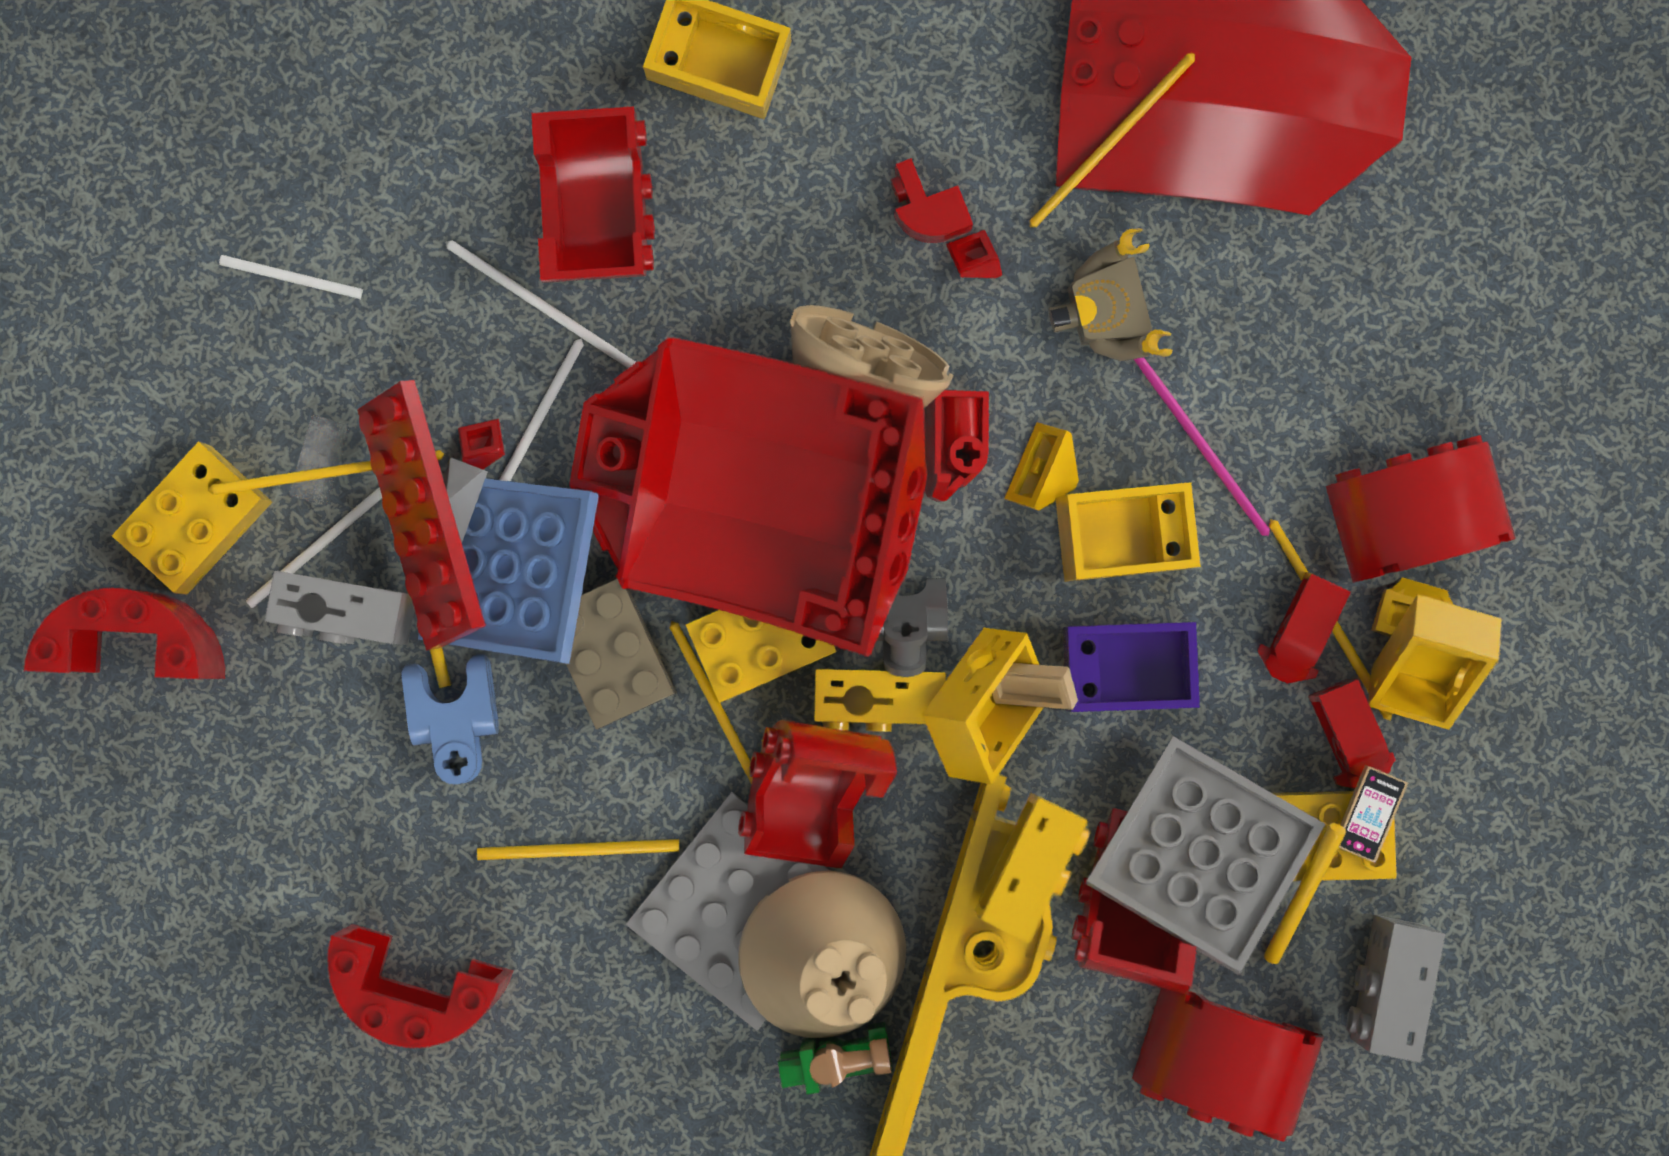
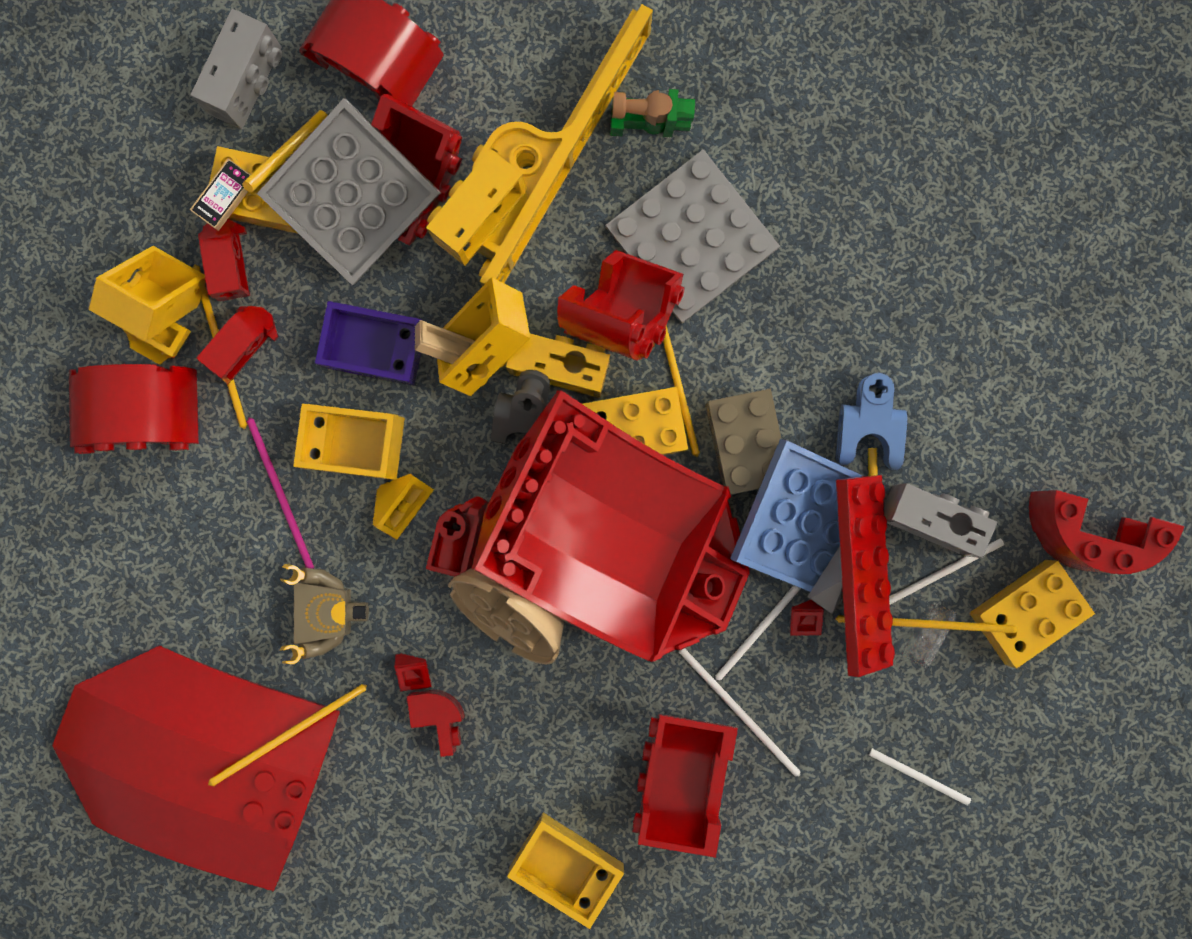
camera: 165 degrees left, 0 degrees up
(403, 1012) = (956, 218): red cylinder -> none
(578, 849) = (802, 308): yellow axle -> none
(822, 954) = (643, 189): tan cone -> none

